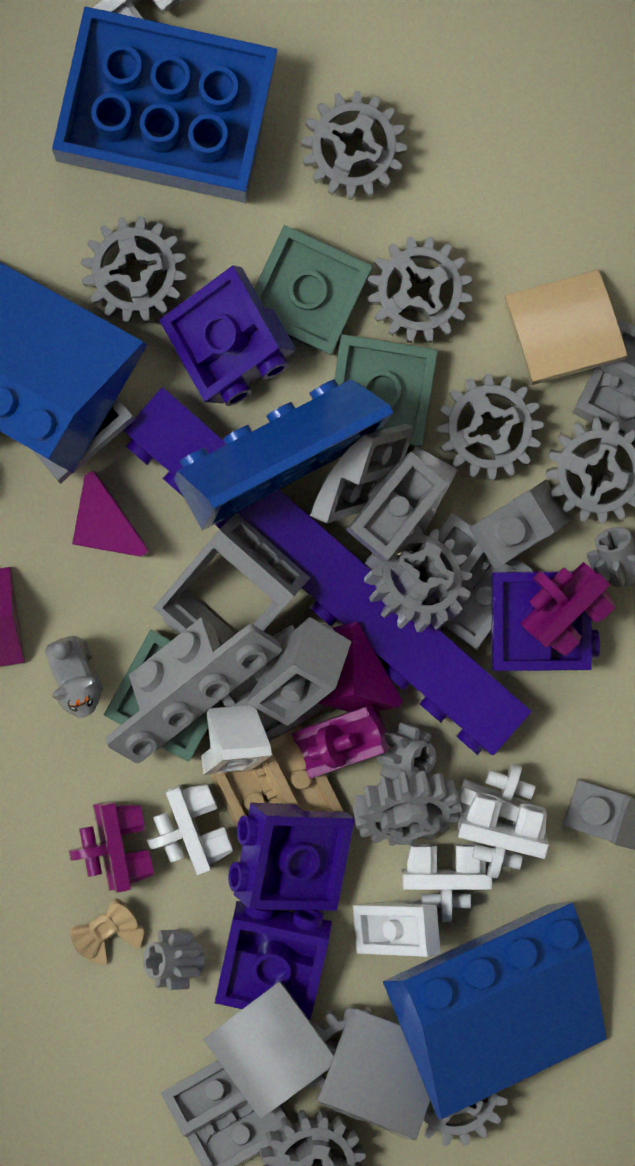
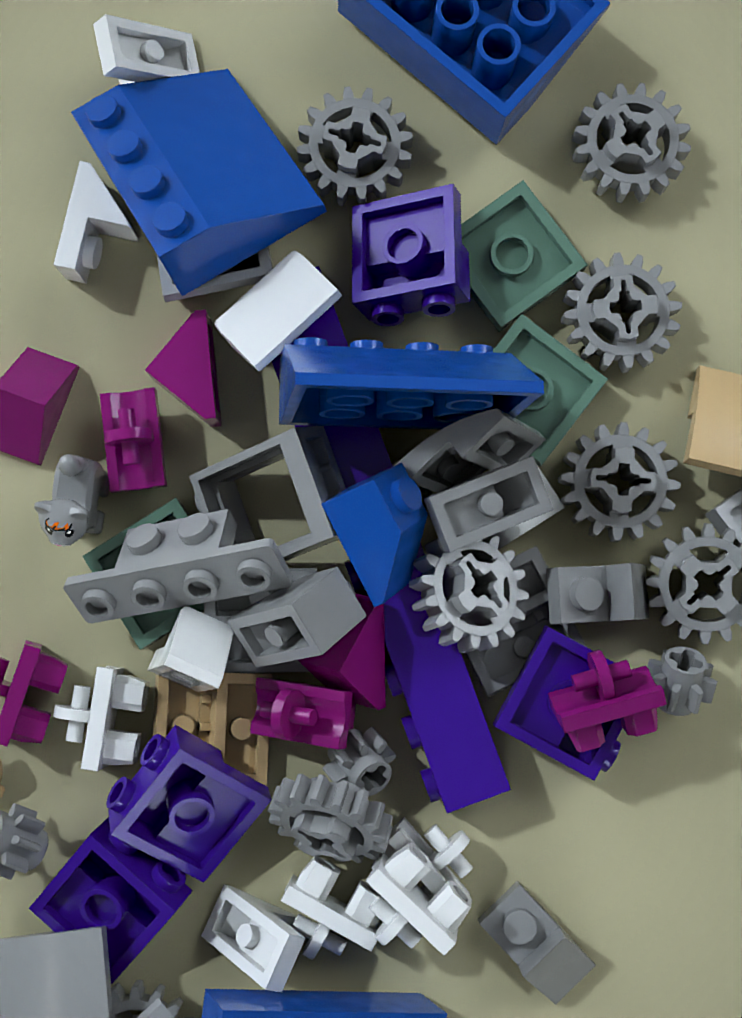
camera: 25 degrees right, 5 degrees down
(92, 603) = (133, 440): none -> magenta hips
(152, 443) = (277, 310): none -> white slope
(325, 570) = (380, 529): none -> blue slope

